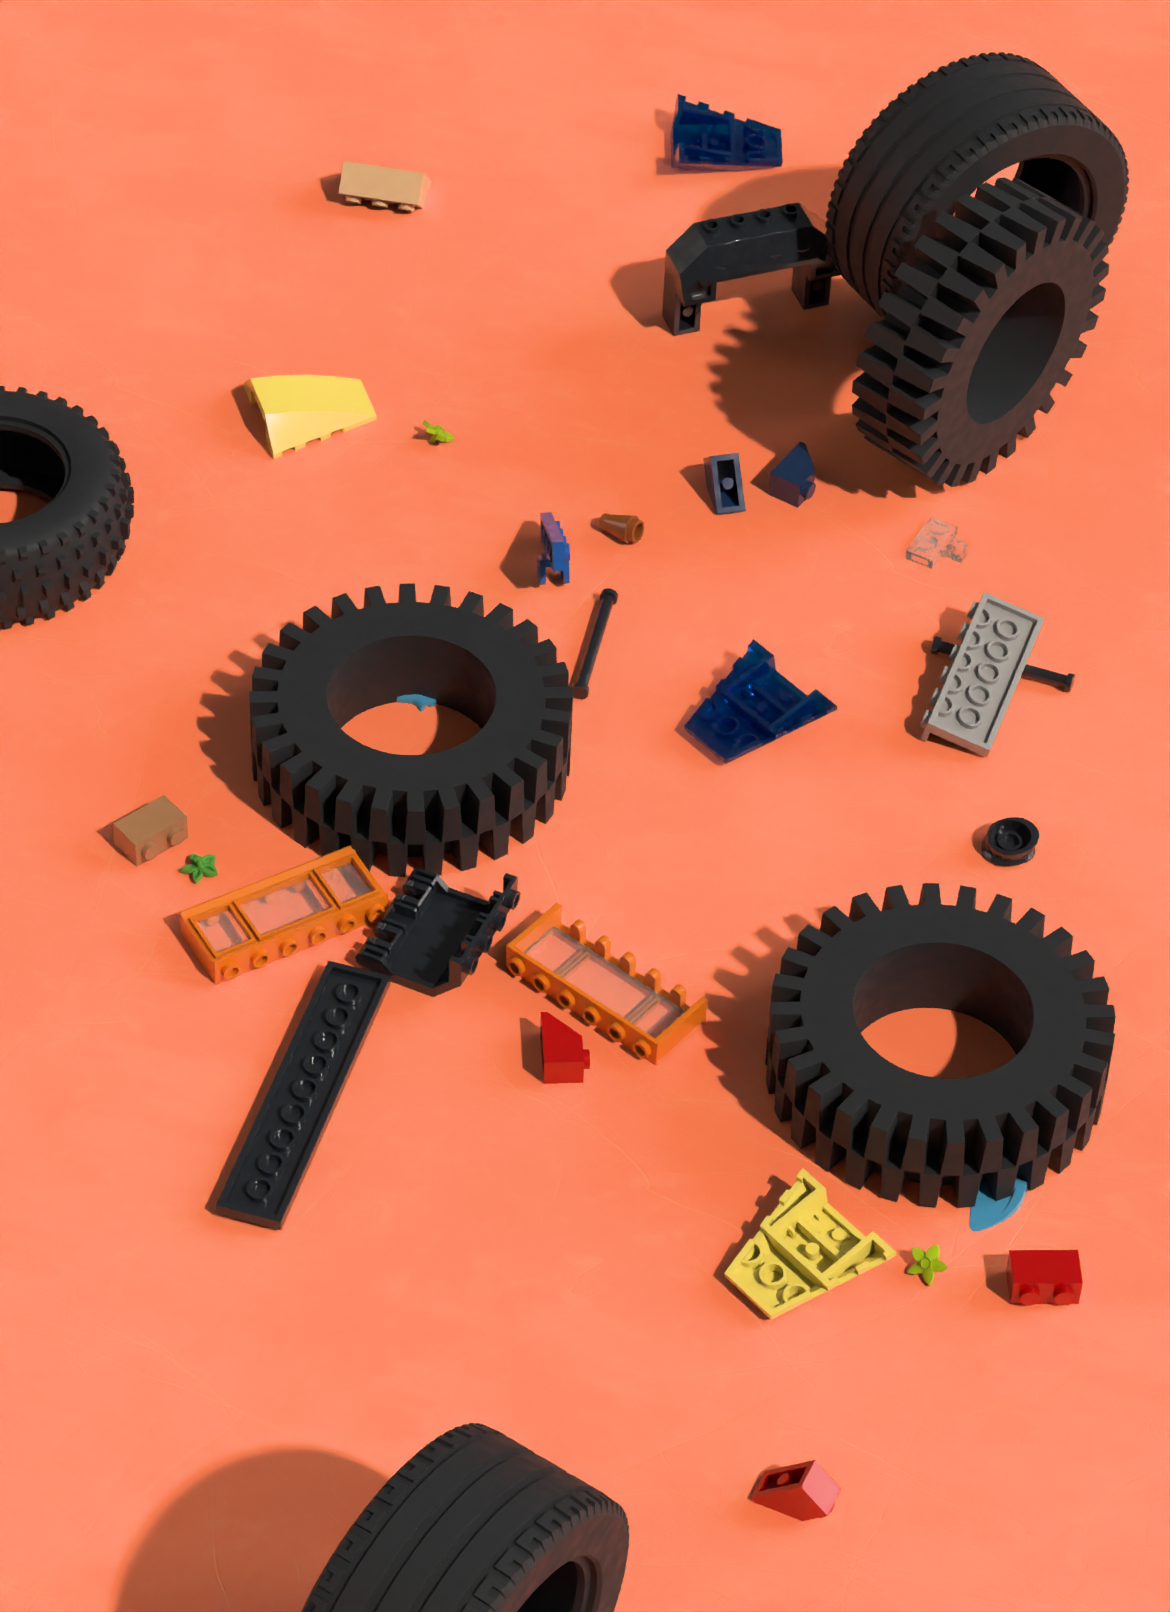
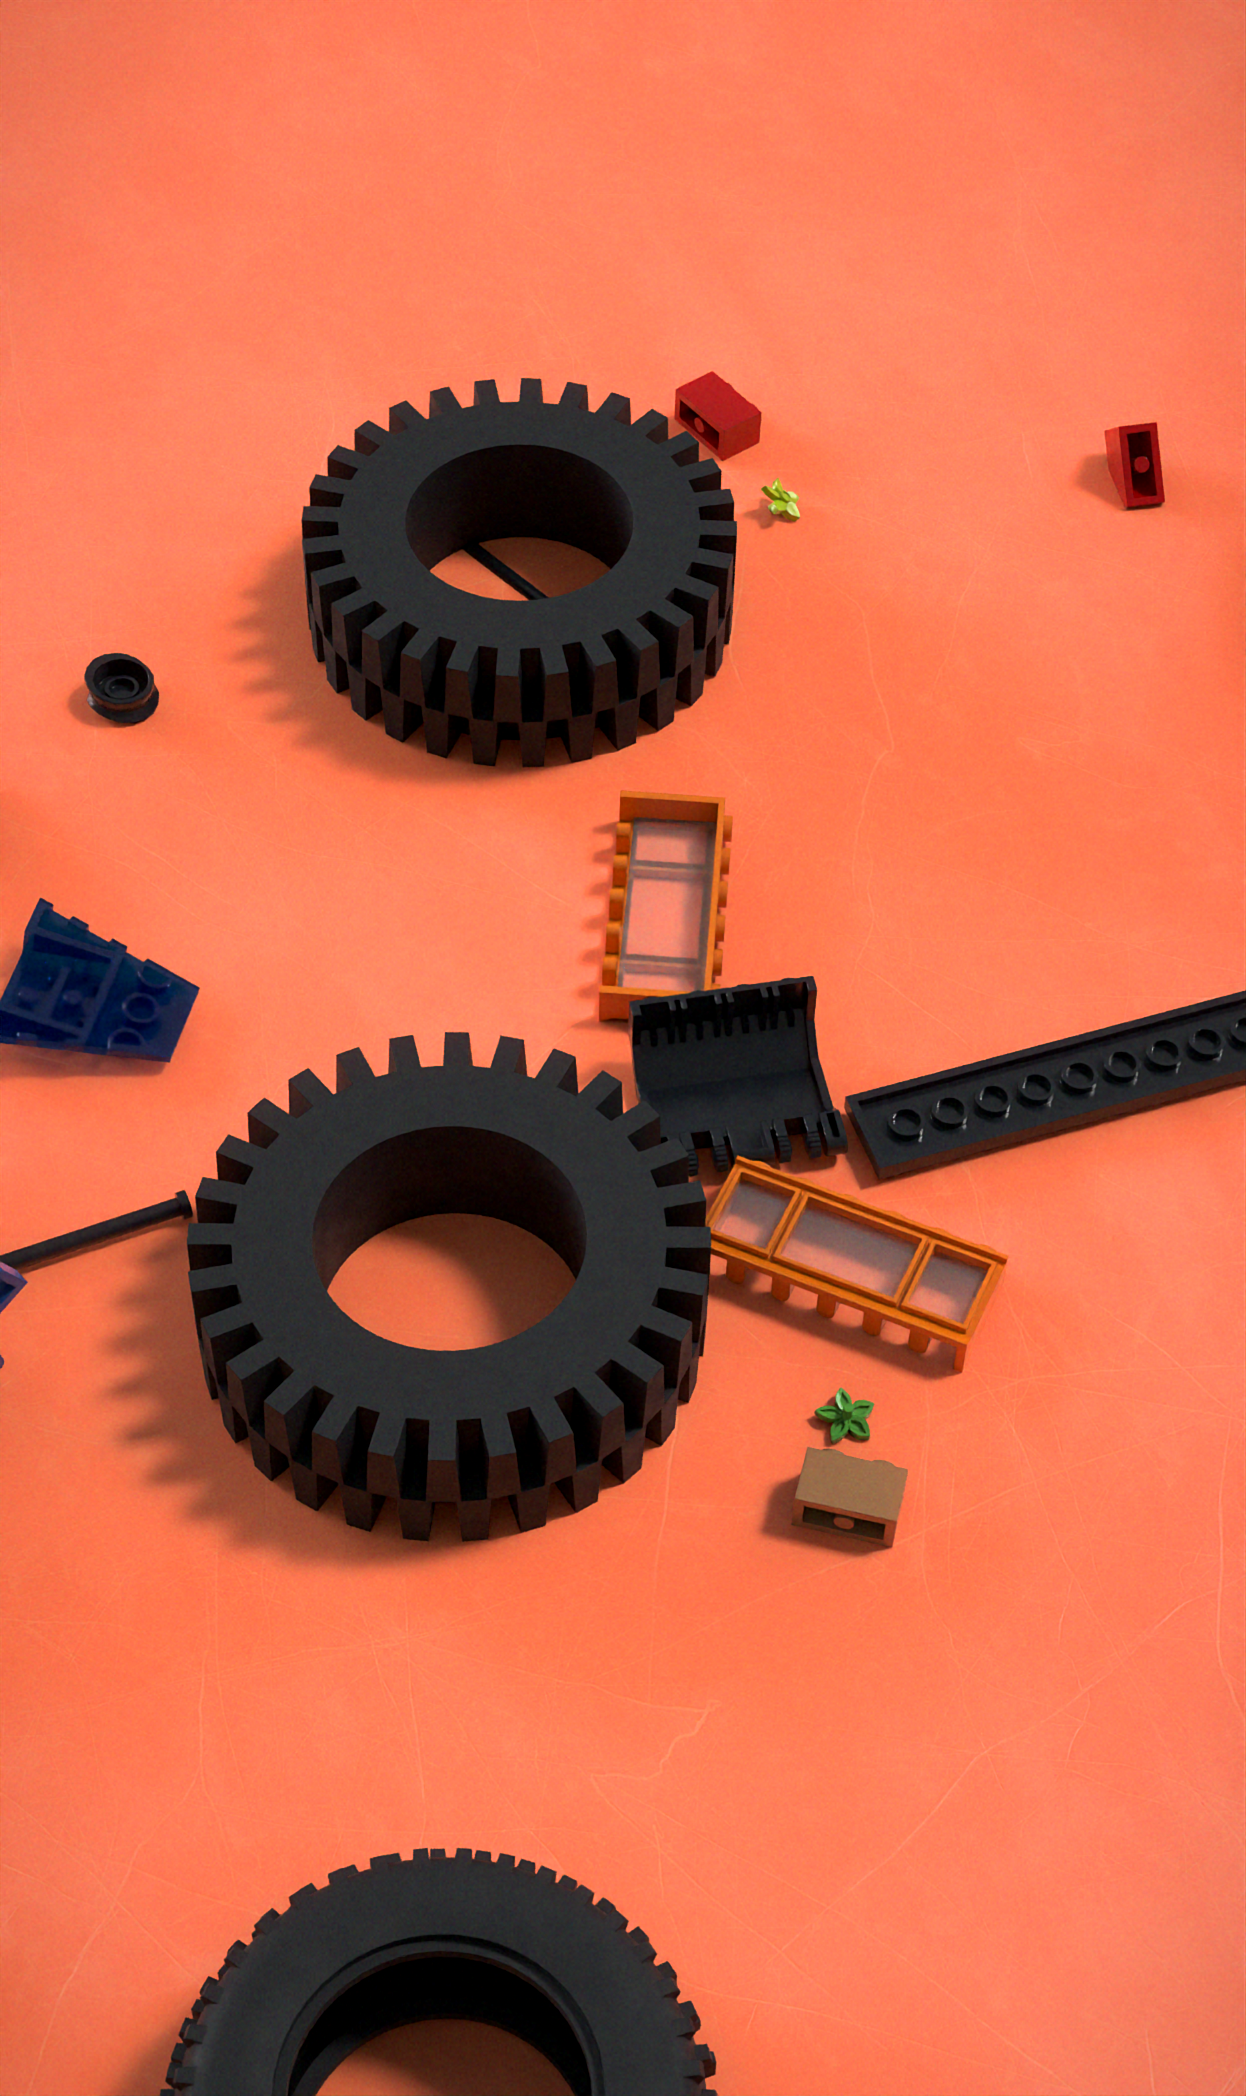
camera: 125 degrees left, 5 degrees up
(561, 1052) = (804, 890): red slope -> none
(803, 1251) = (867, 574): light yellow wedge -> none

